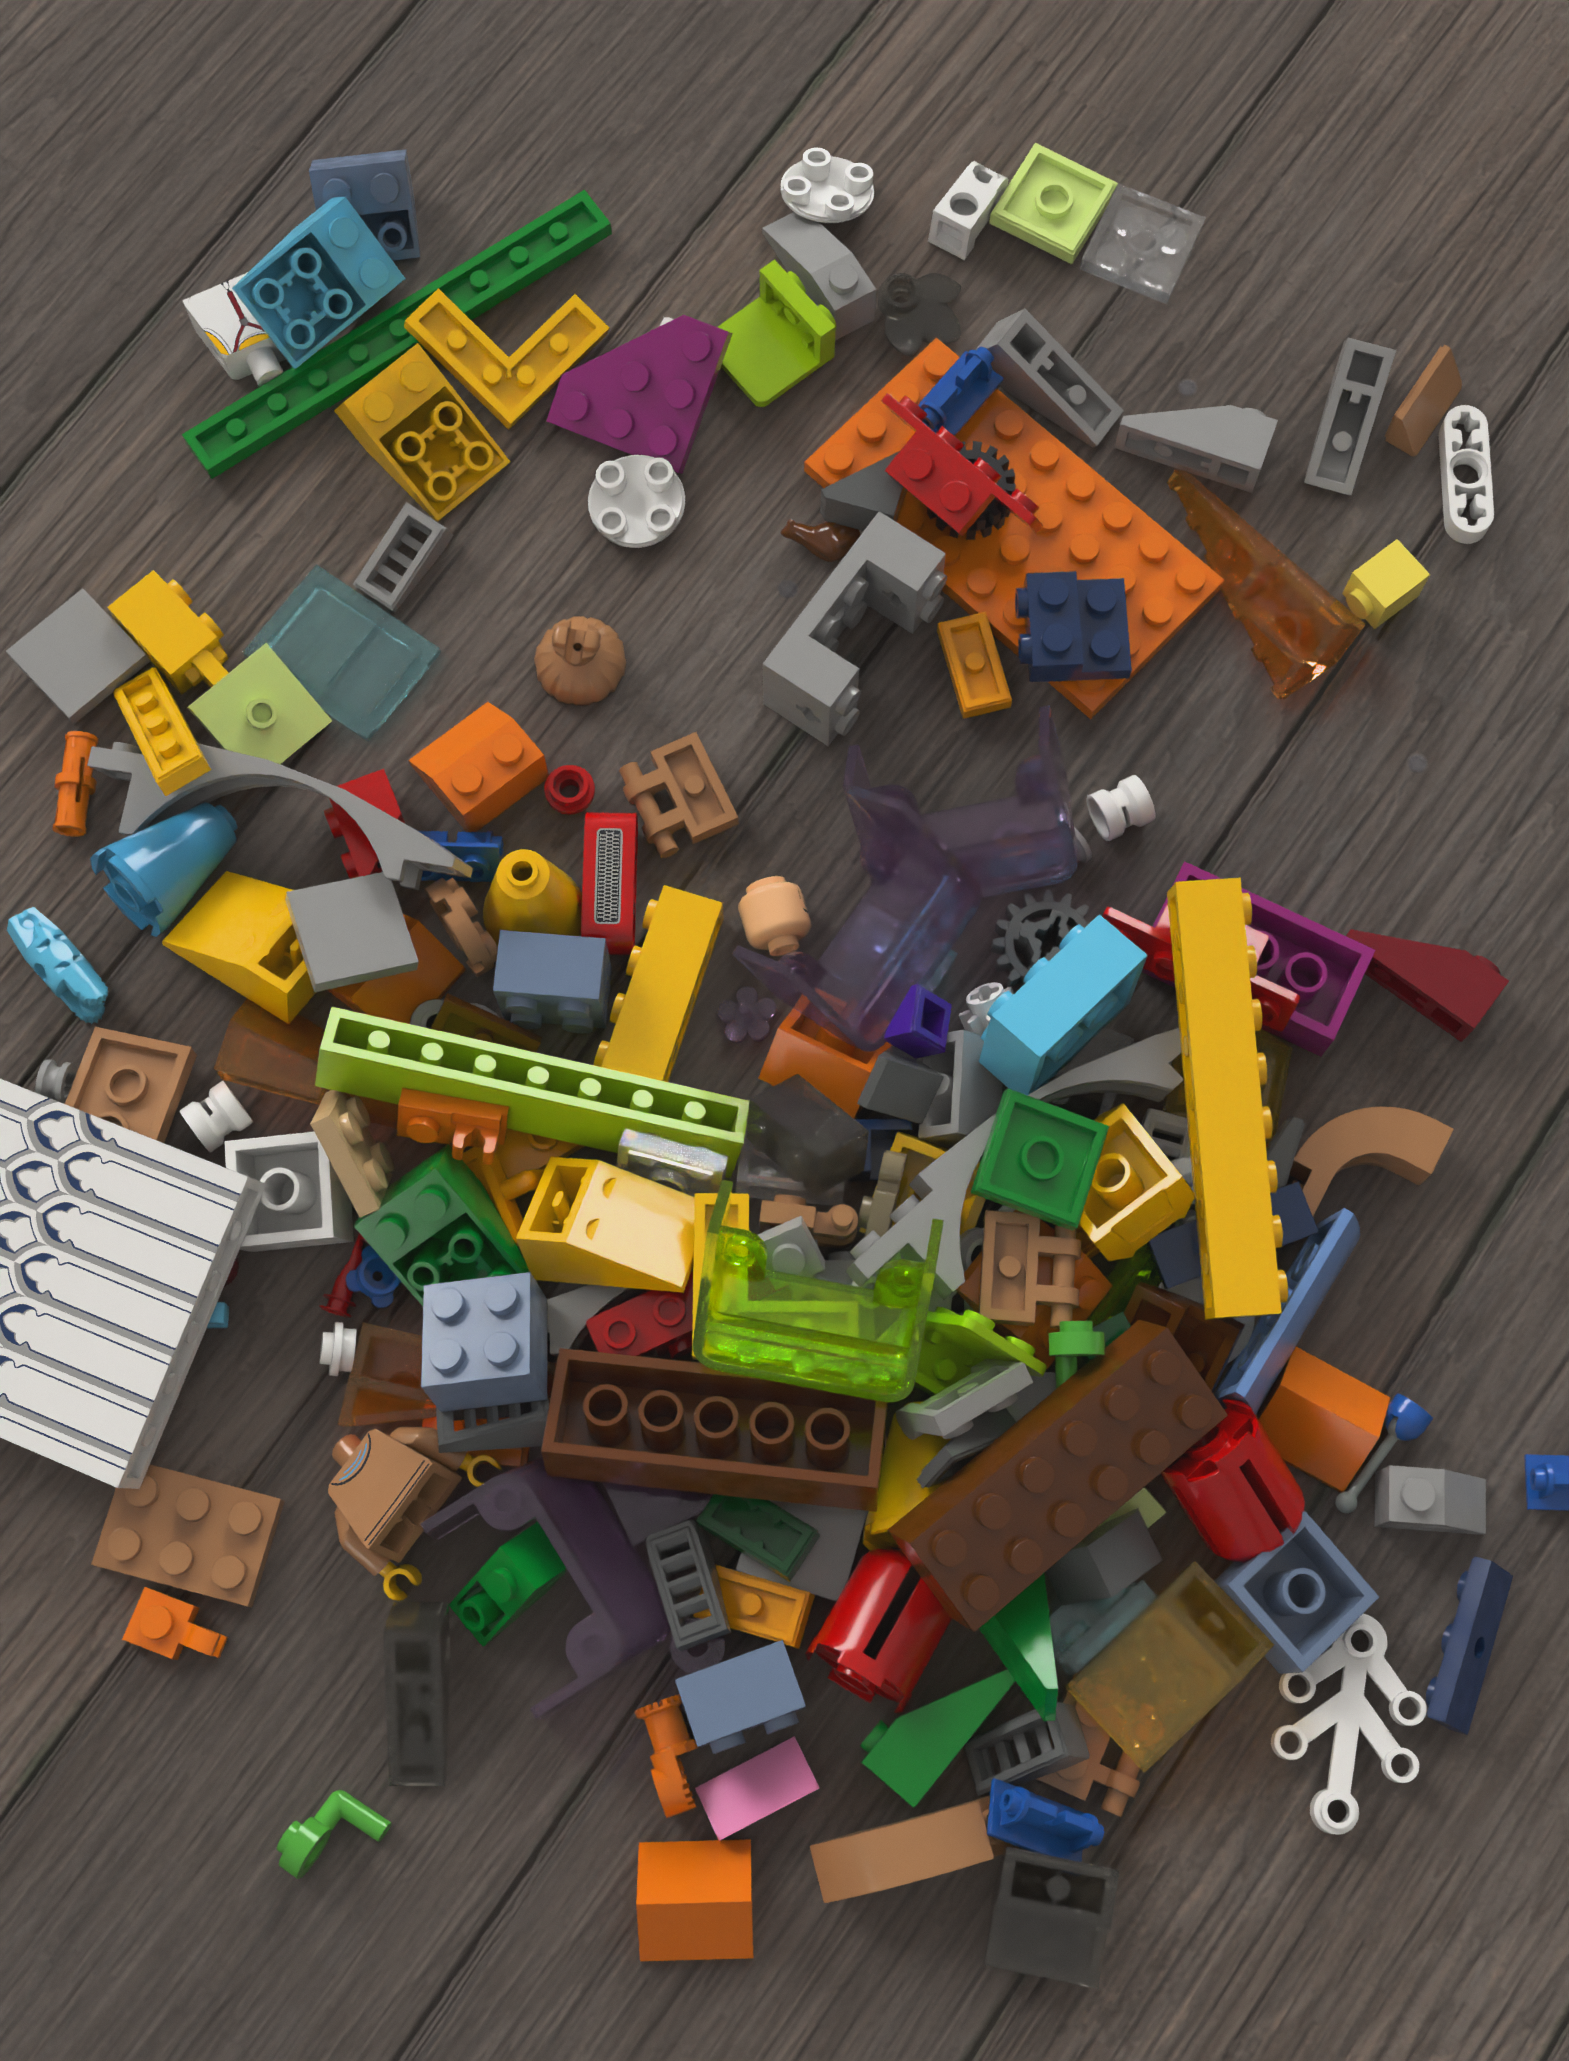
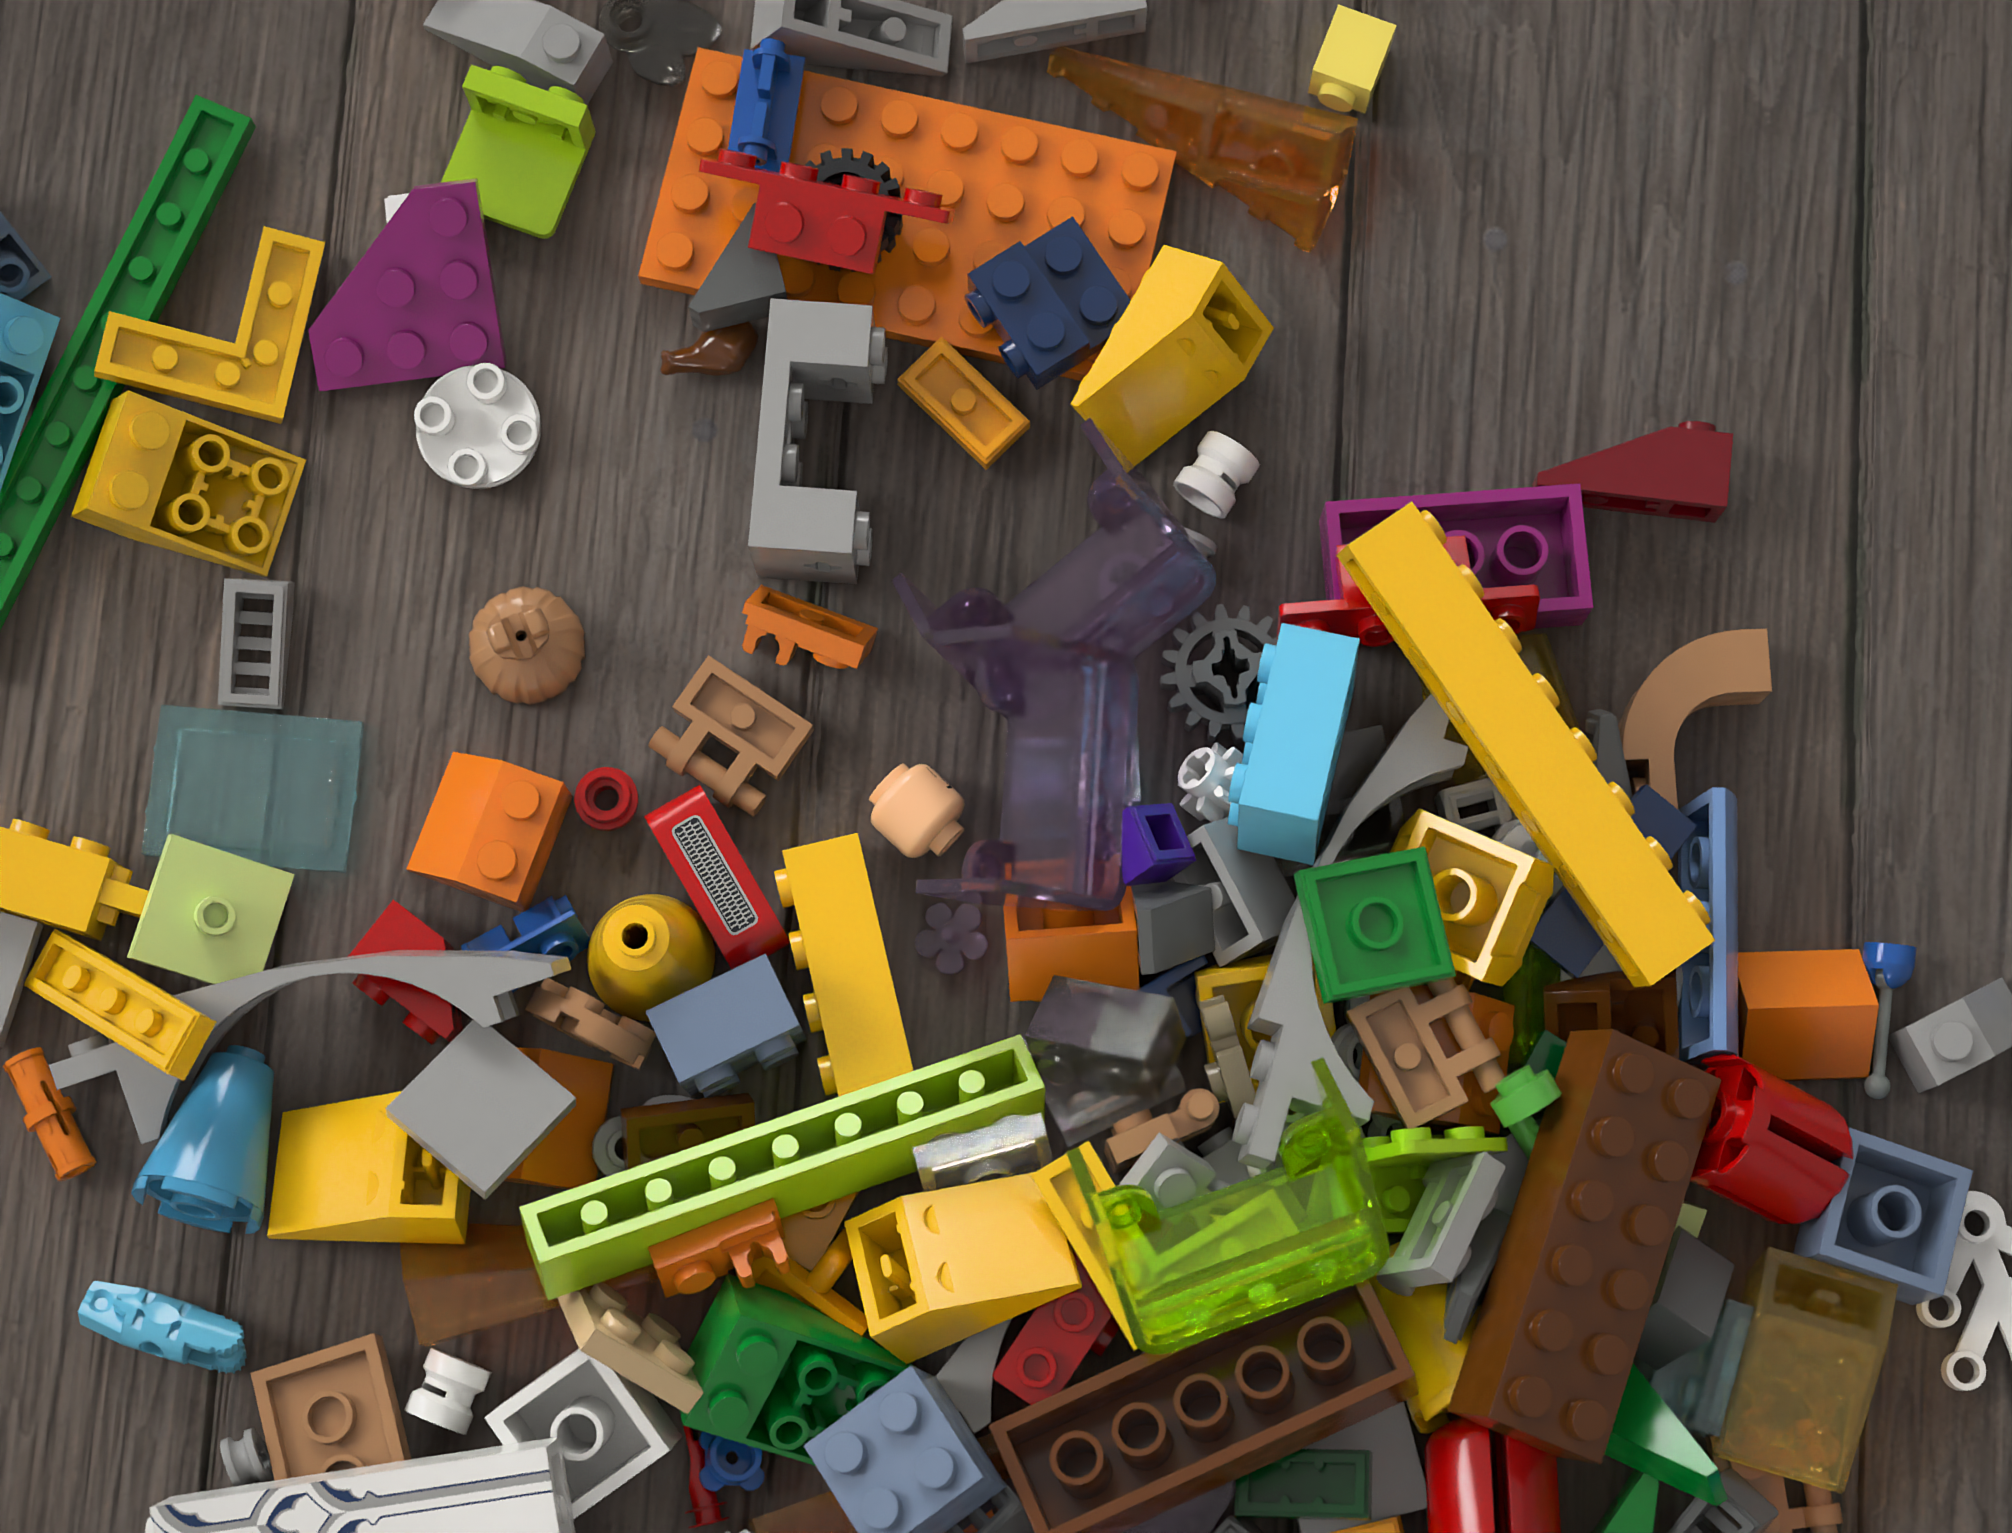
camera: 30 degrees left, 5 degrees up
(768, 745) = (829, 635): none -> orange plate
(1136, 705) = (1172, 352): none -> yellow slope

